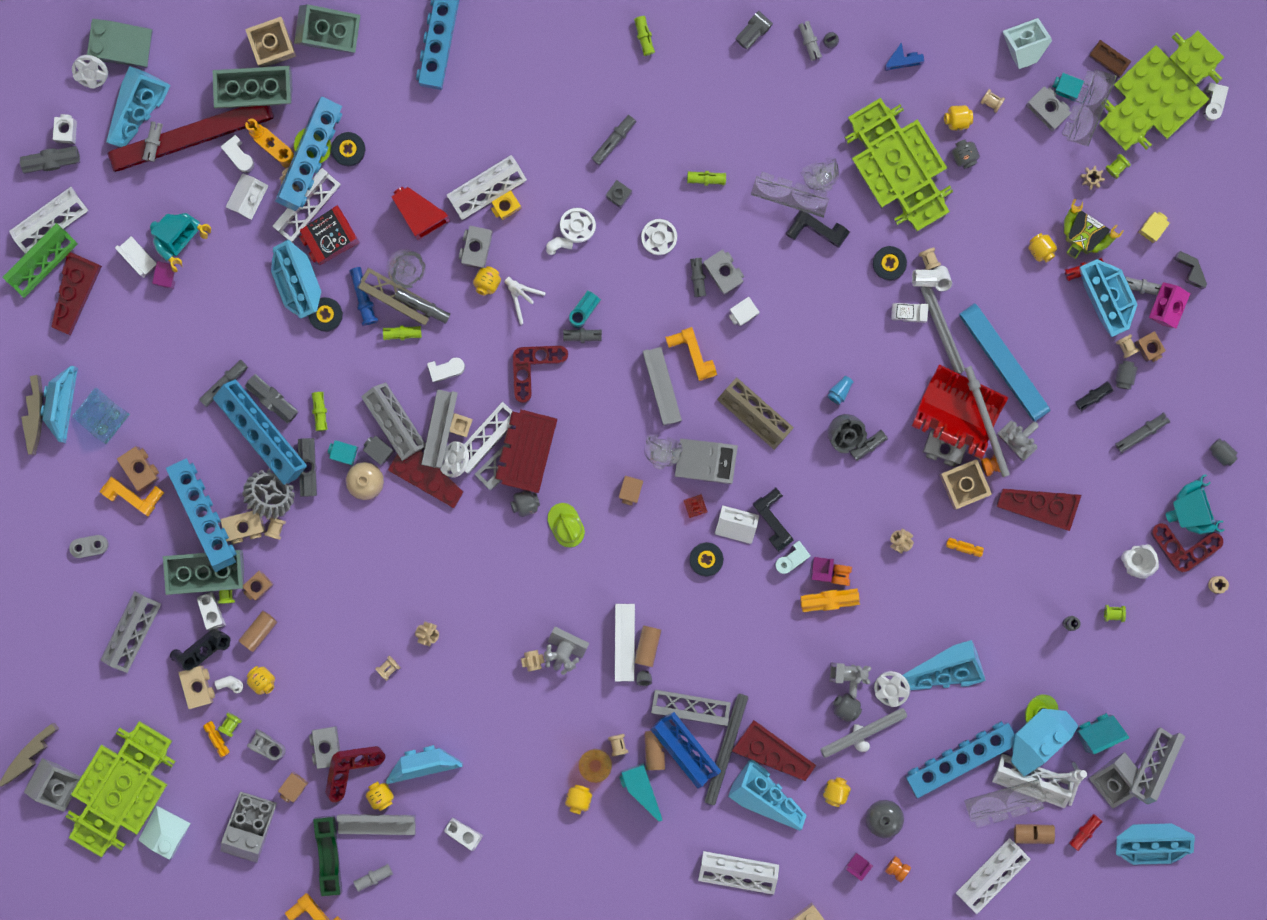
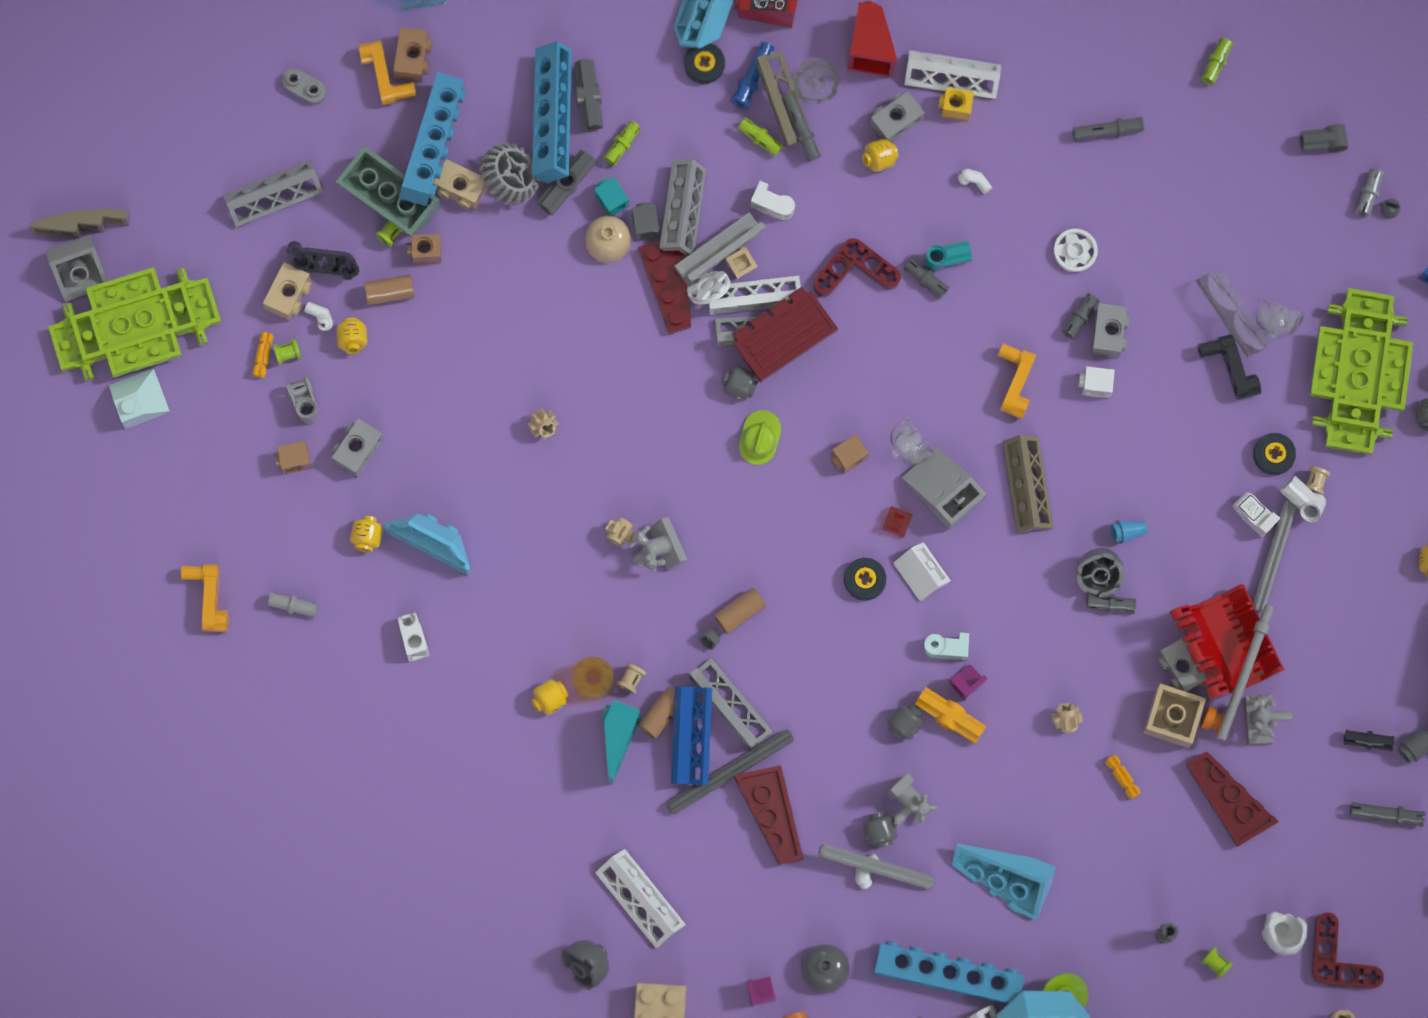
camera: 35 degrees right, 10 degrees down
(210, 611) = (361, 236): white leg -> none
(228, 376) = (576, 44): dark grey pin -> none
(248, 827) = (219, 459): light grey slope -> none
(275, 528) = (488, 211): tan bush -> none
(328, 855) = (261, 559): dark green arch -> none
(340, 765) = (358, 476): dark red beam -> none
(376, 824) = (340, 558): light grey fence -> none
(385, 674) = (478, 424): tan bush -> none
(516, 290) = (900, 188): white plant -> none
(577, 225) = (1007, 176): white wheel -> none
(618, 194) = (1071, 179): dark grey brick -> none
(624, 642) = (720, 589): white fence -> none
(662, 386) = (960, 385): light grey fence -> none
(706, 178) = (1166, 233): lime pin -> none
(761, 795) = (725, 839): medium azure wedge -> none
(781, 537) = (962, 573): black beam -> none
(806, 628) = (905, 722): none -> dark grey head
(836, 792) = (801, 901): yellow head -> none
(841, 570) = (981, 701): orange wheel -> none
(891, 689) = (938, 849): white wheel -> none
(1004, 362) = (1308, 636): dark azure beam -> none
(1194, 509) = (1378, 928): teal torso -> none

